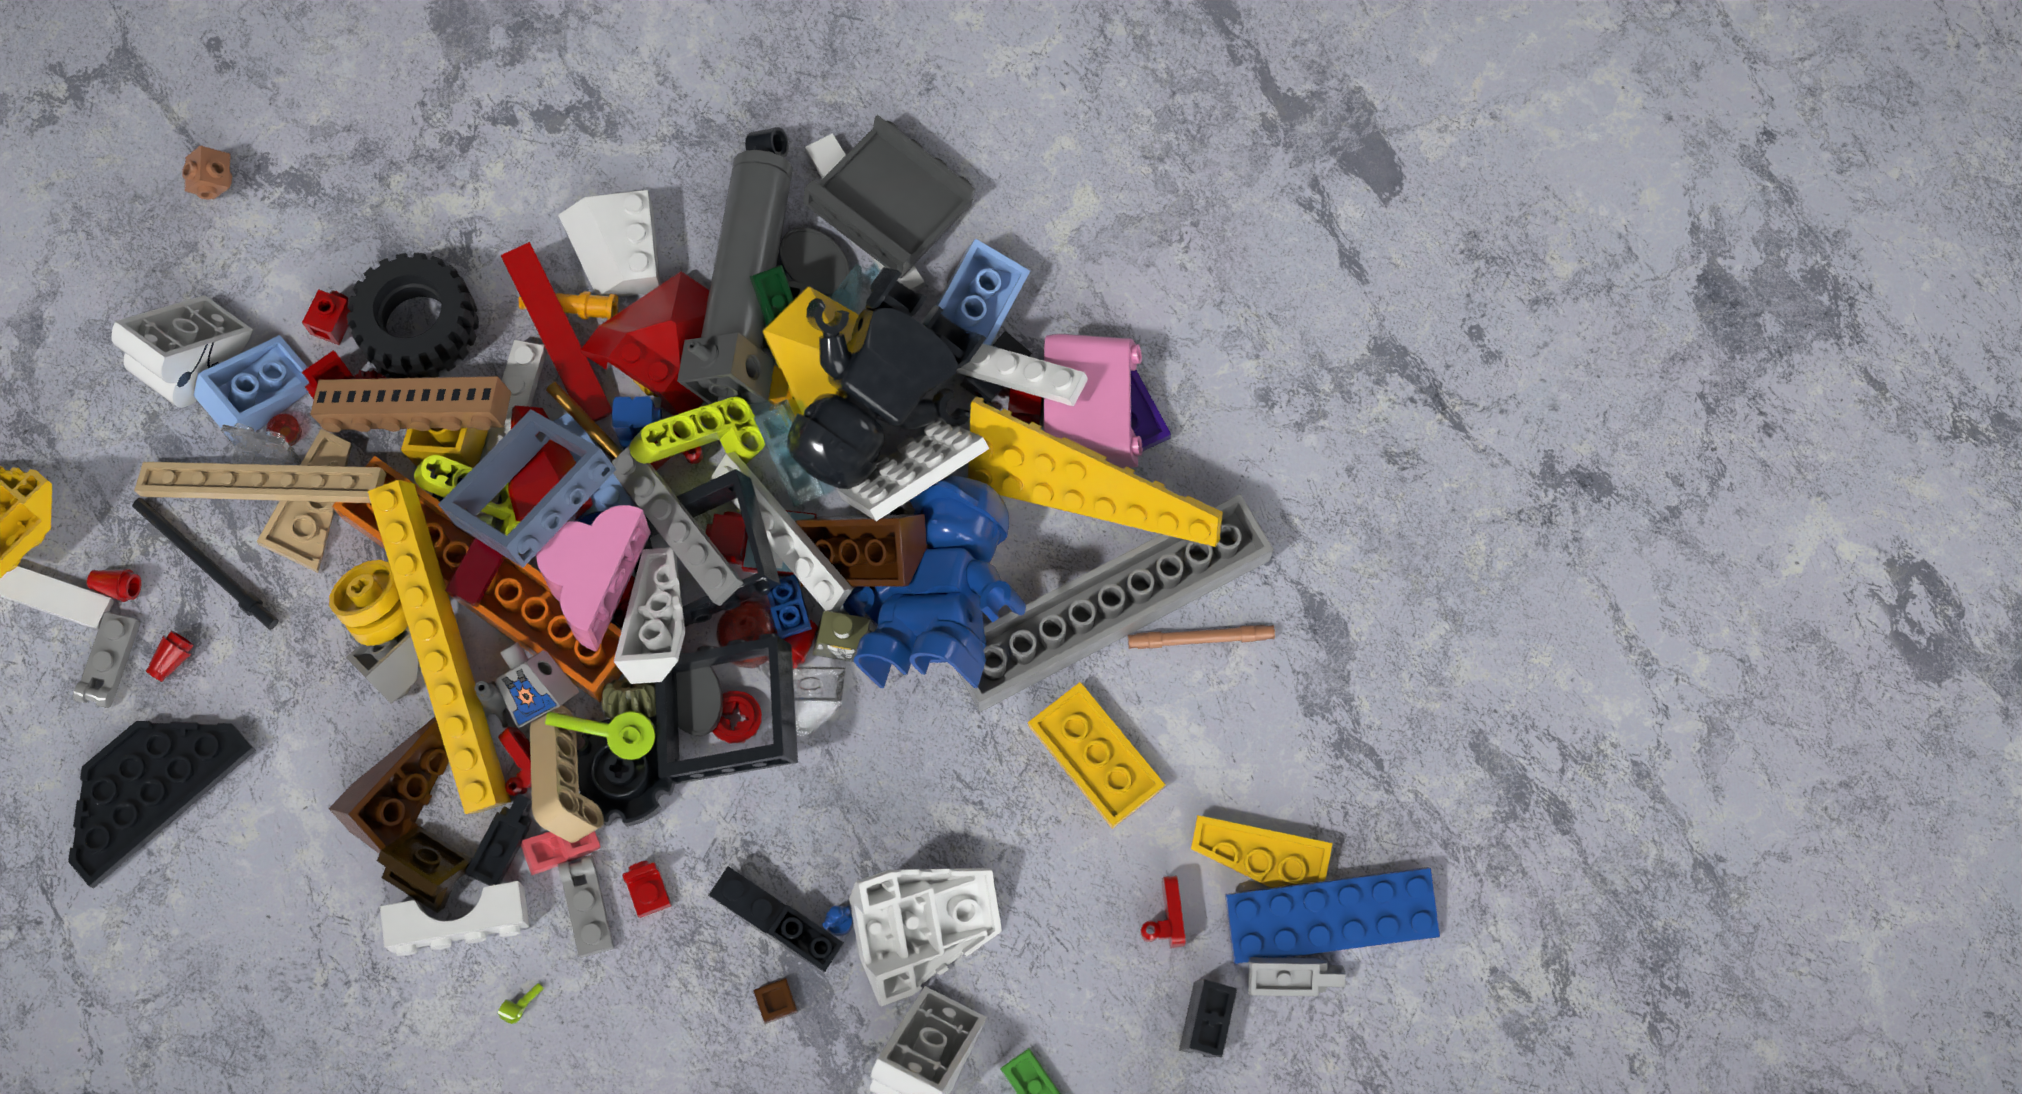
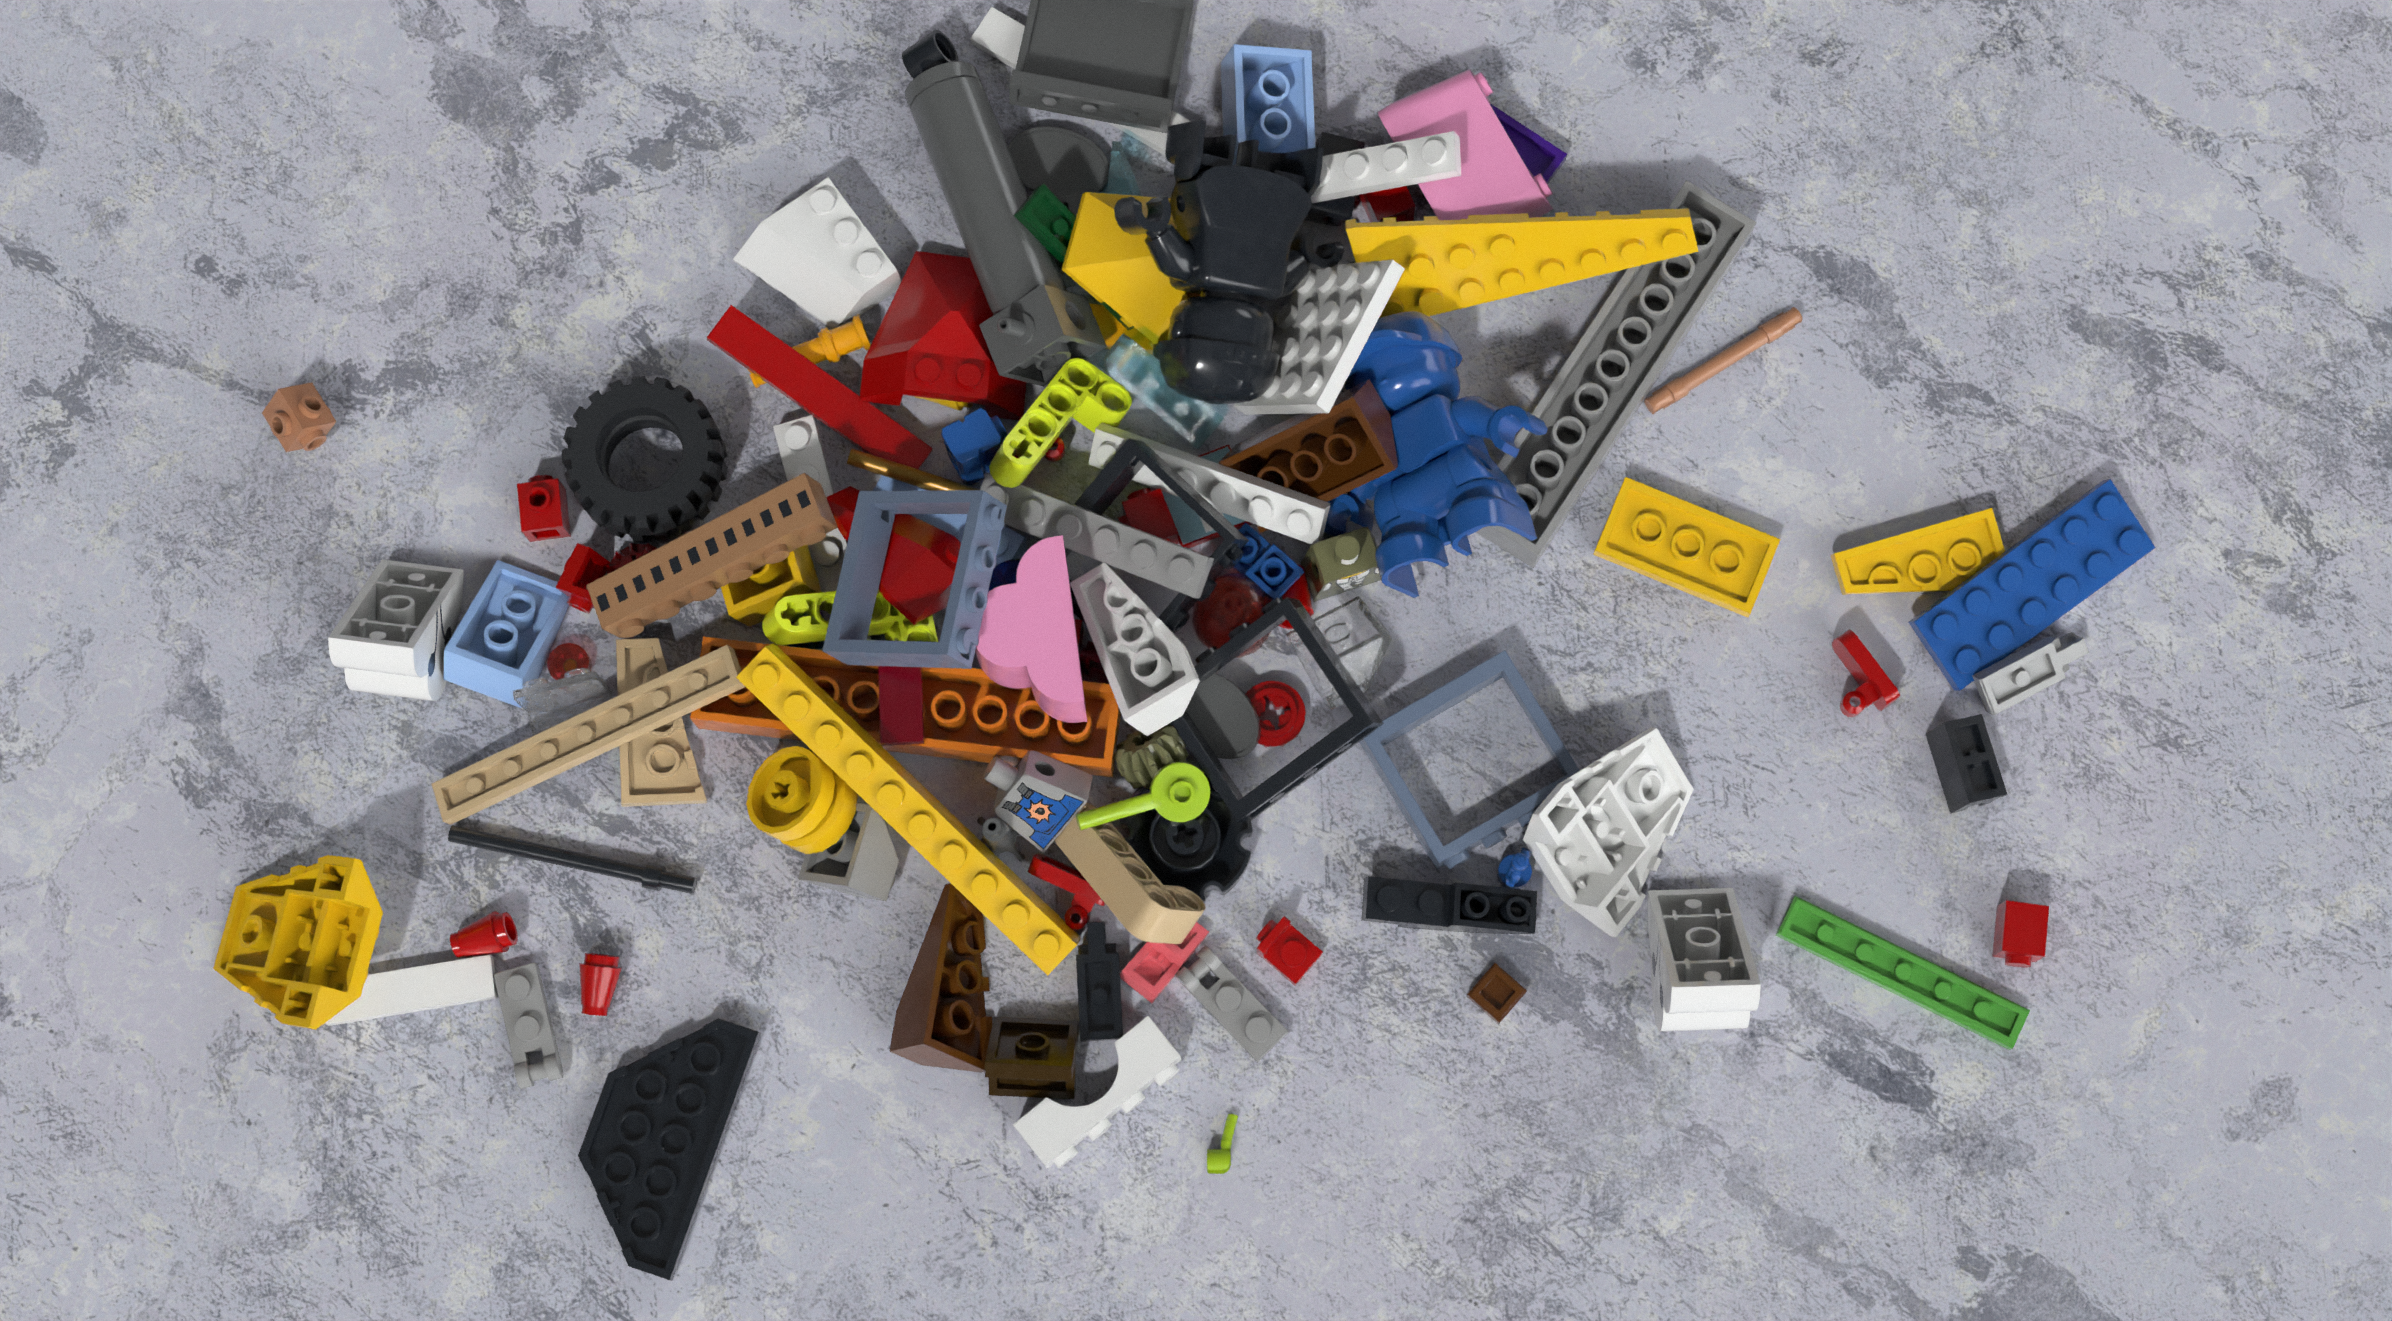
camera: 25 degrees left, 5 degrees up
(845, 771) = (1435, 703): none -> sand blue window

